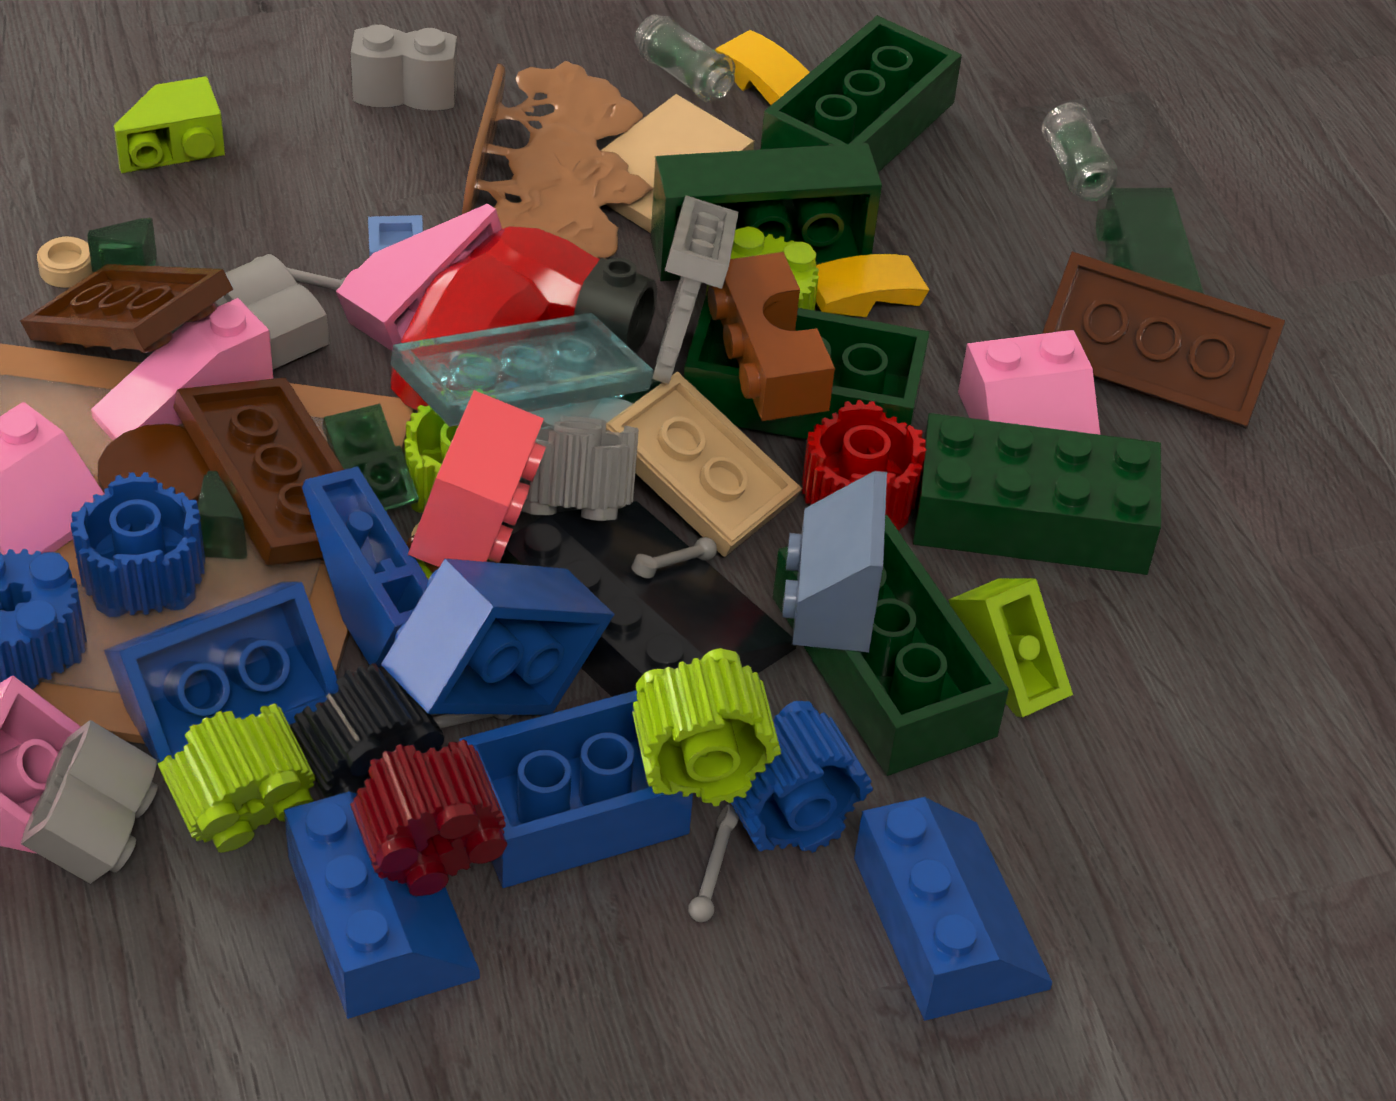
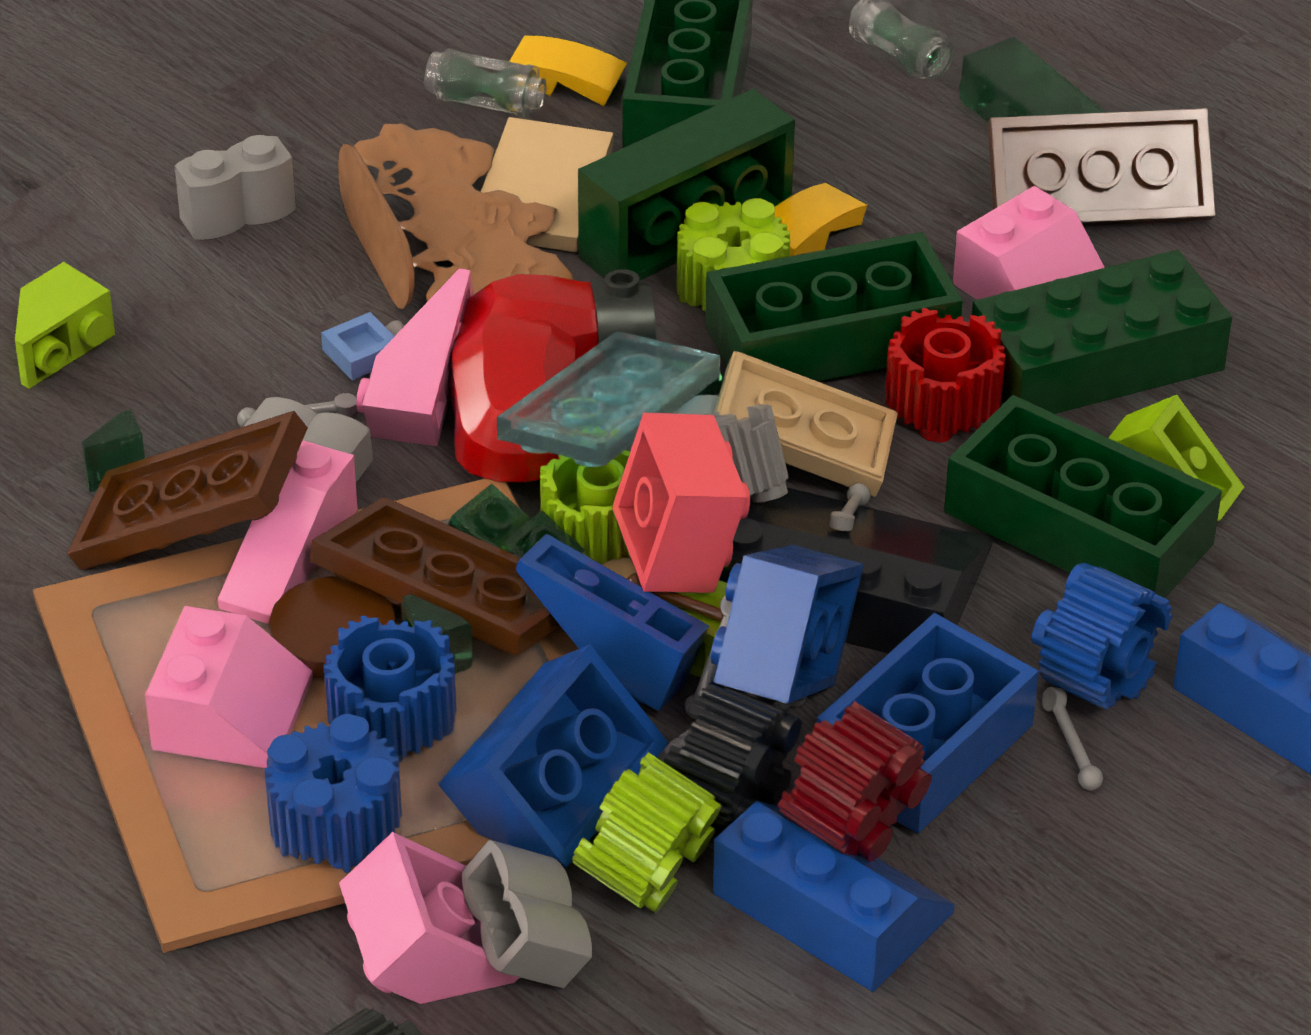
camera: 25 degrees left, 5 degrees down
(64, 261) = (56, 487): tan tile -> none
(698, 255) = (704, 268): light grey fence -> none
(704, 727) = (1037, 609): lime brick -> none
(779, 367) = (836, 308): dark orange arch -> none
(838, 567) = (1035, 439): sand blue slope -> none

